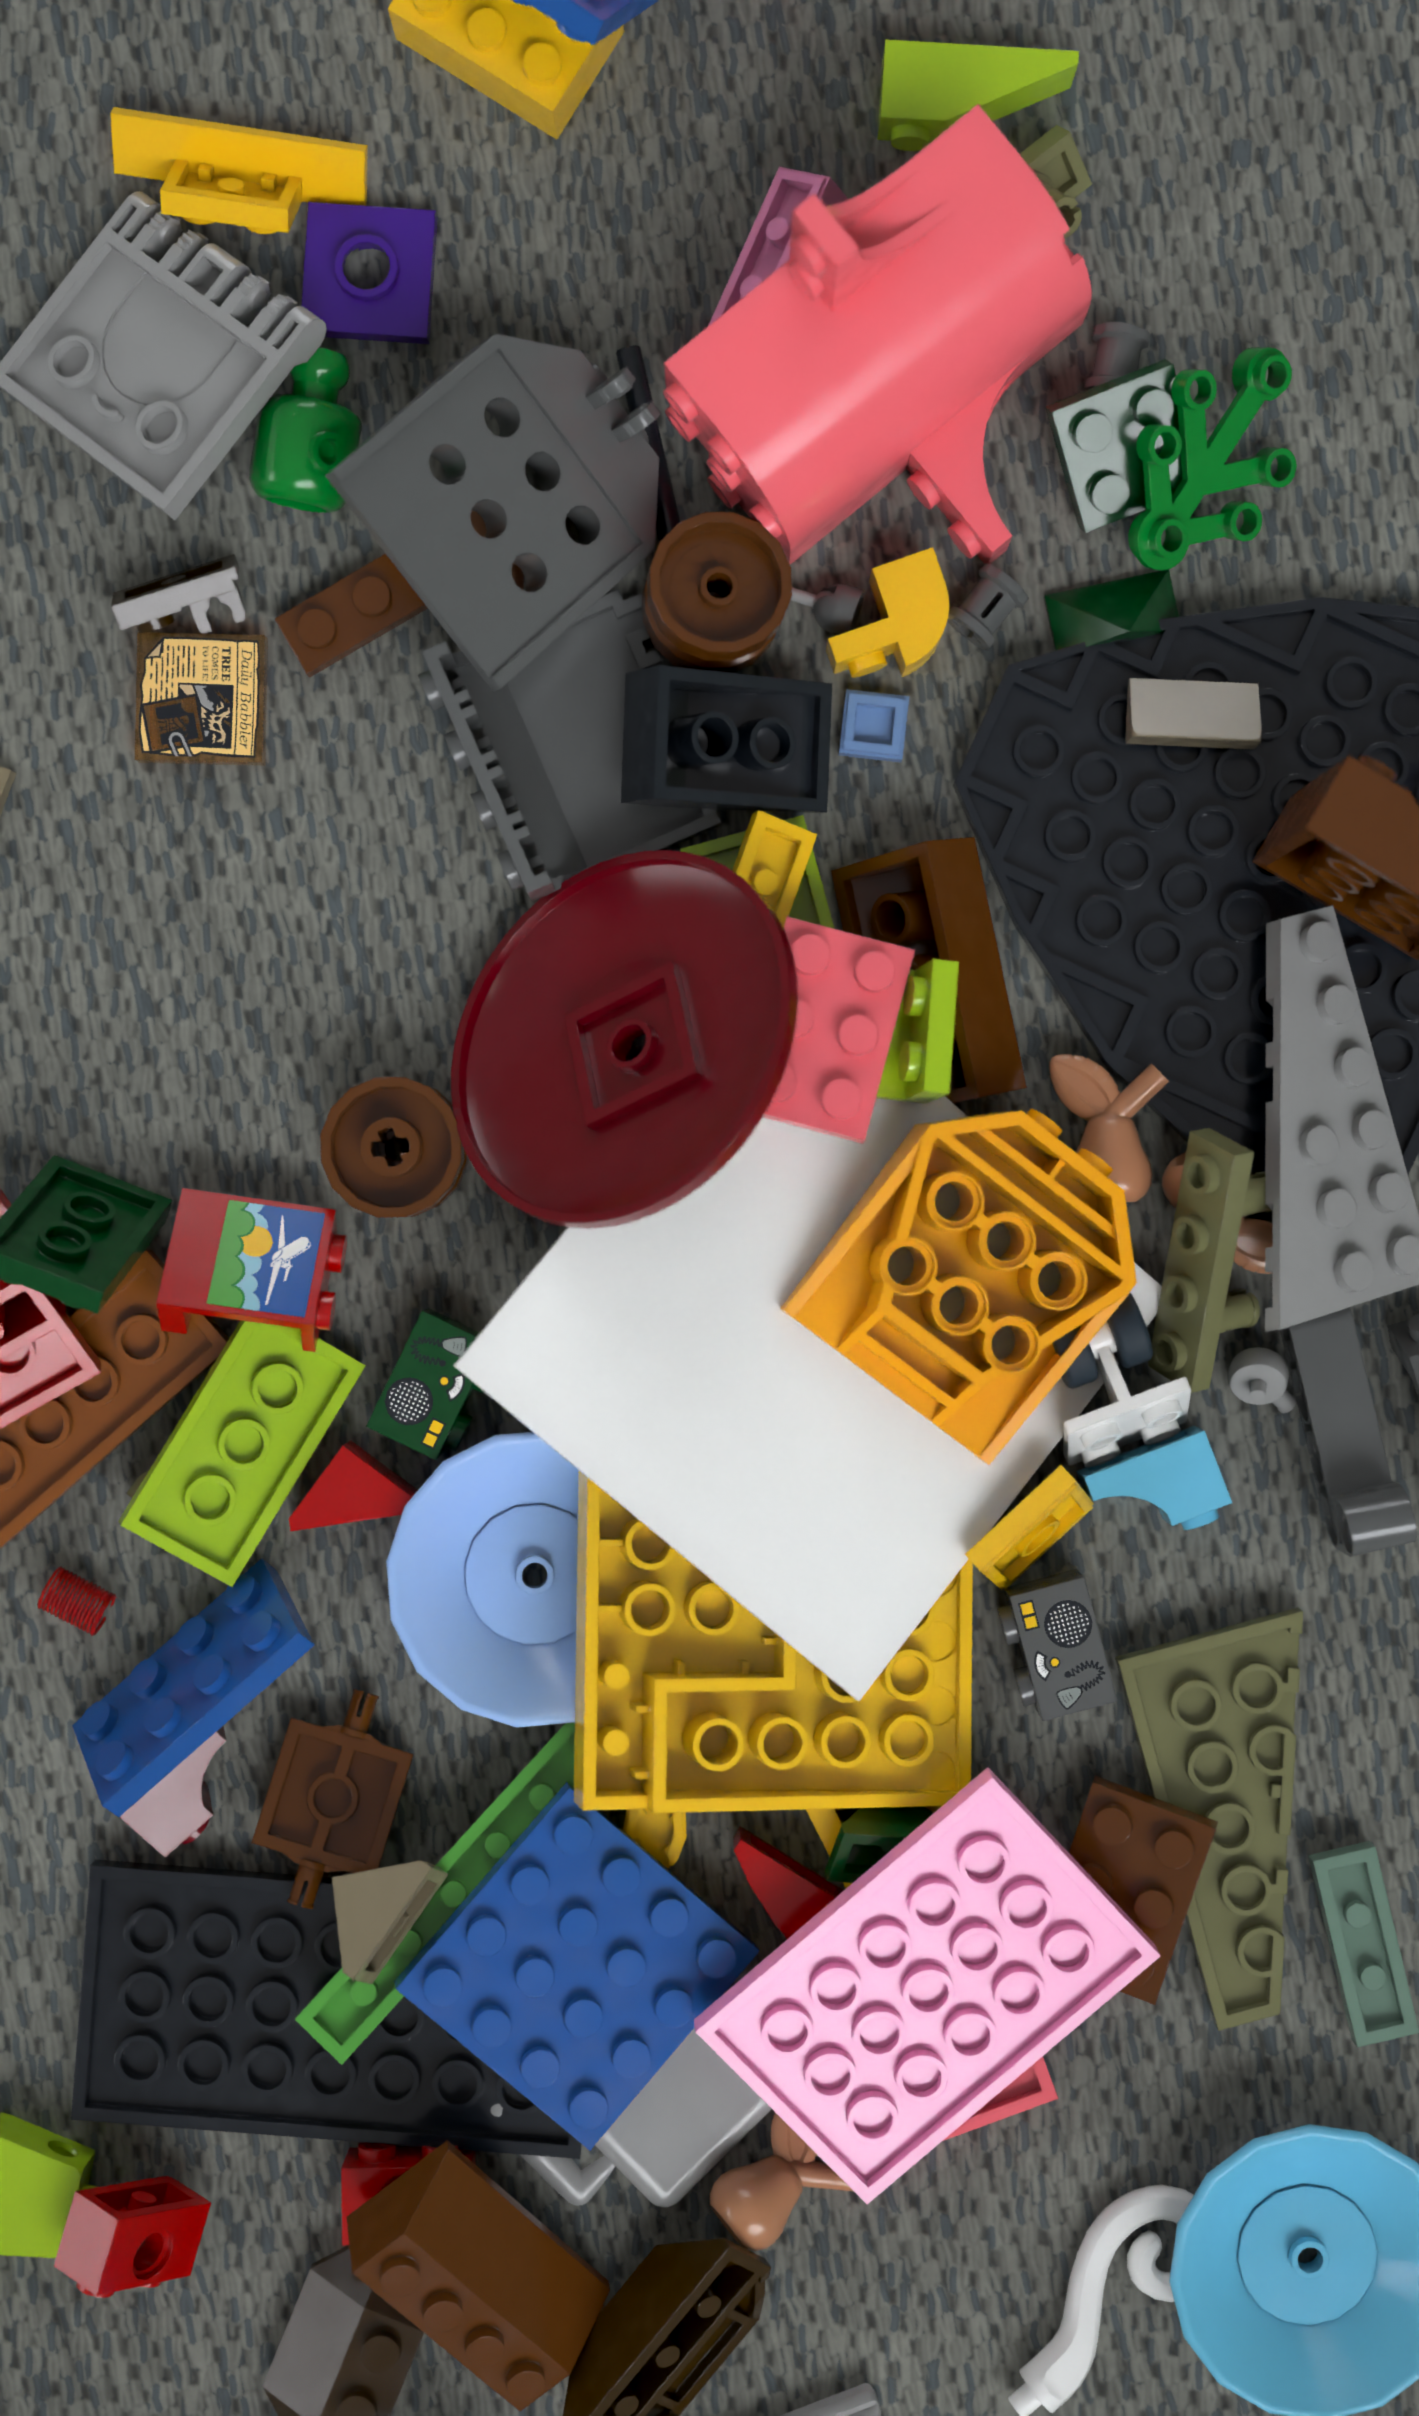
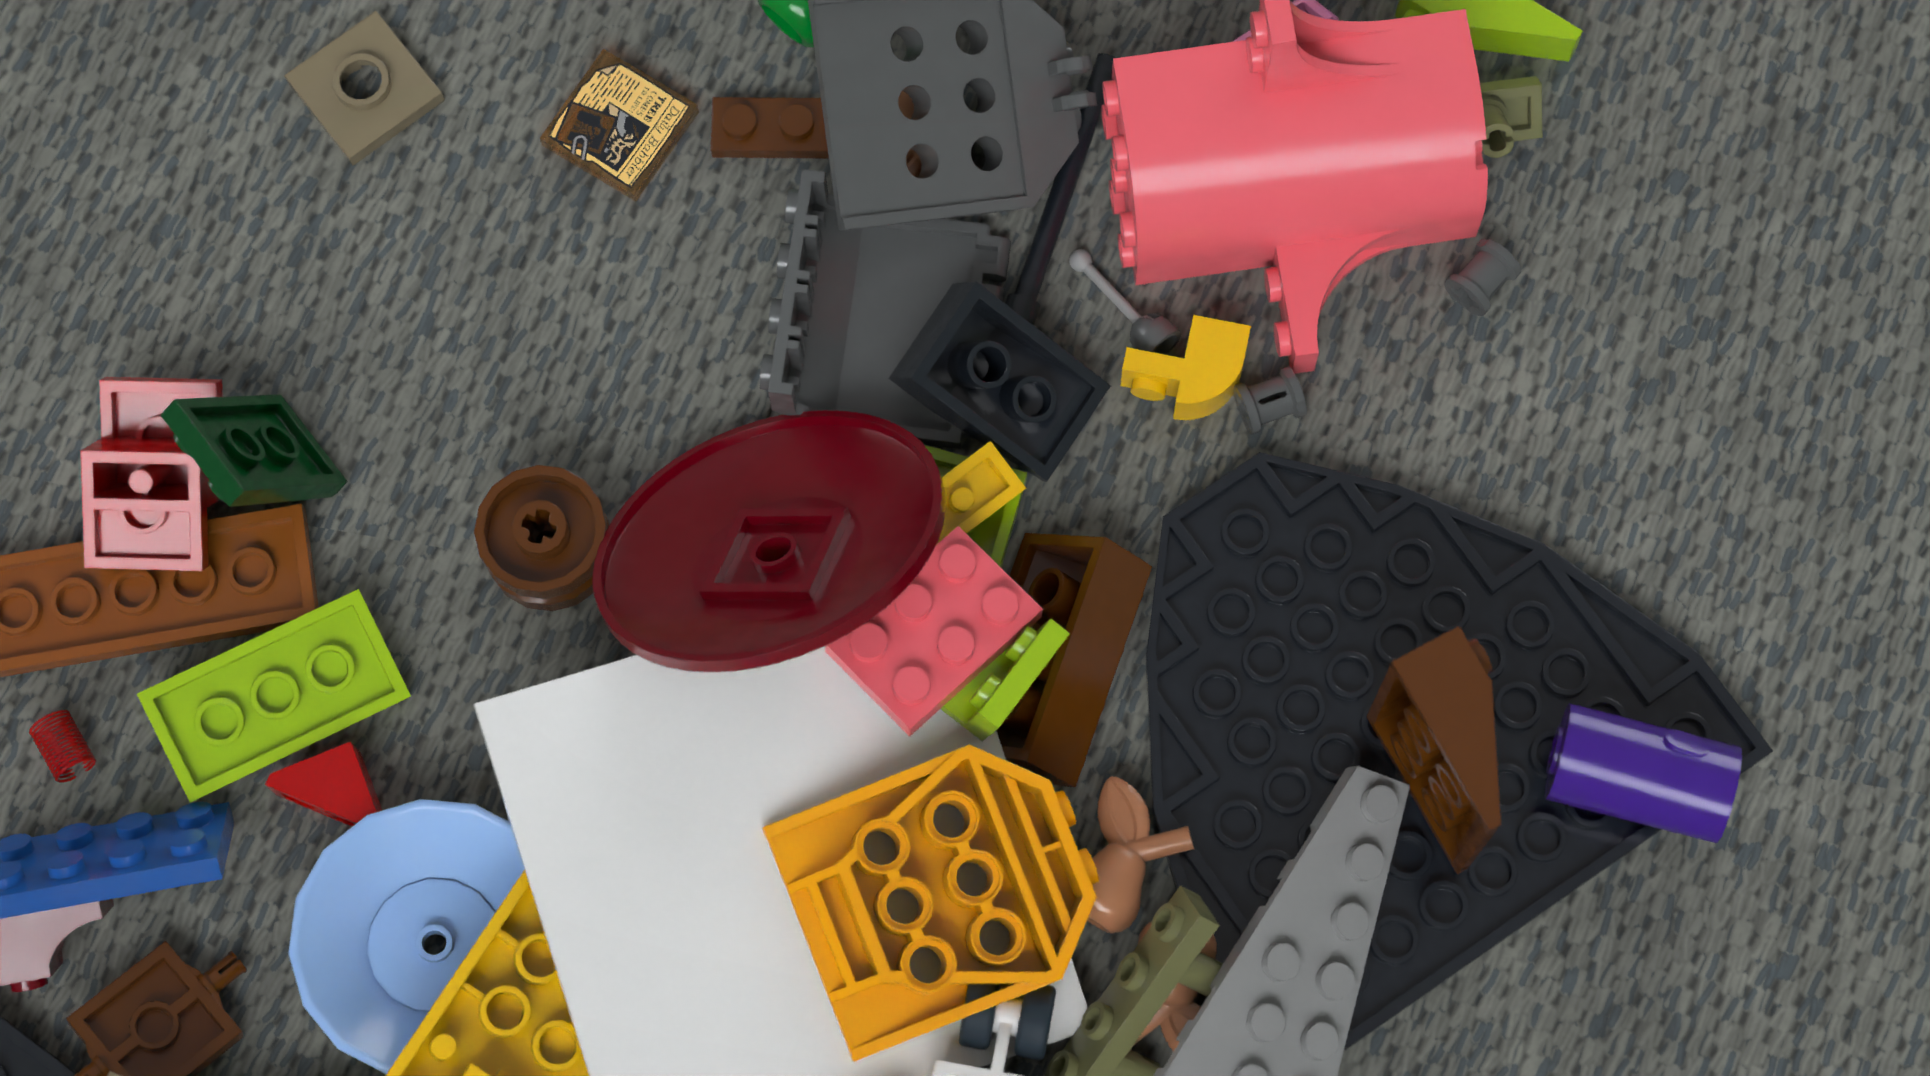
camera: 30 degrees right, 15 degrees down
(154, 602) = (627, 34): plate -> none
(251, 1263) = (374, 556): panel -> none
(425, 1391) = (442, 744): dark green brick -> none
(723, 556) = (1059, 261): reddish brown wheel -> none
(873, 725) = (1126, 441): medium blue tile -> none
(1098, 441) = (1451, 340): plate -> none
(1111, 610) = (1371, 460): dark green slope -> none
(1193, 713) = (1383, 571): dark tan slope -> none
(1204, 461) = (1505, 389): green plant -> none

